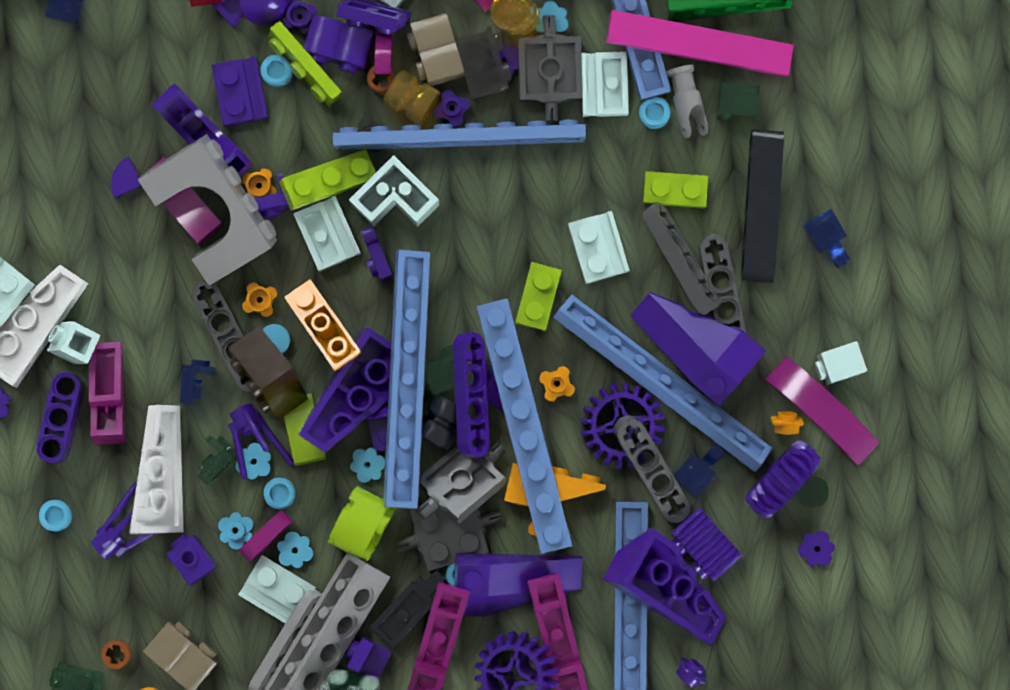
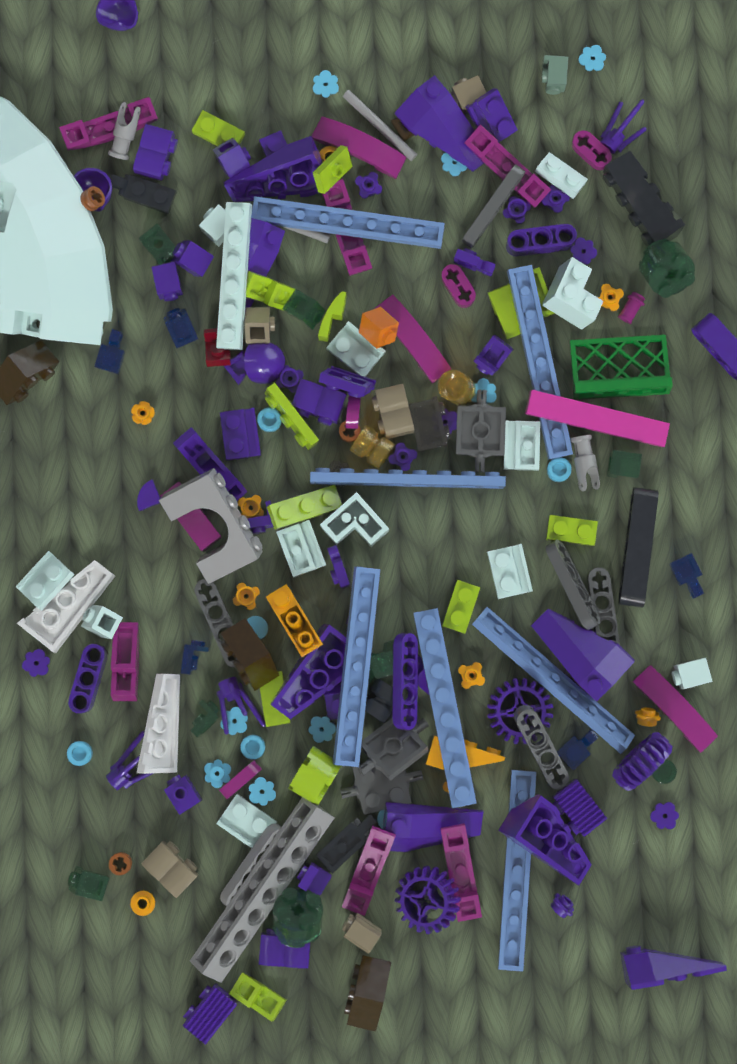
camera: 10 degrees right, 0 degrees up
(114, 79) = (147, 417): none -> light orange plate

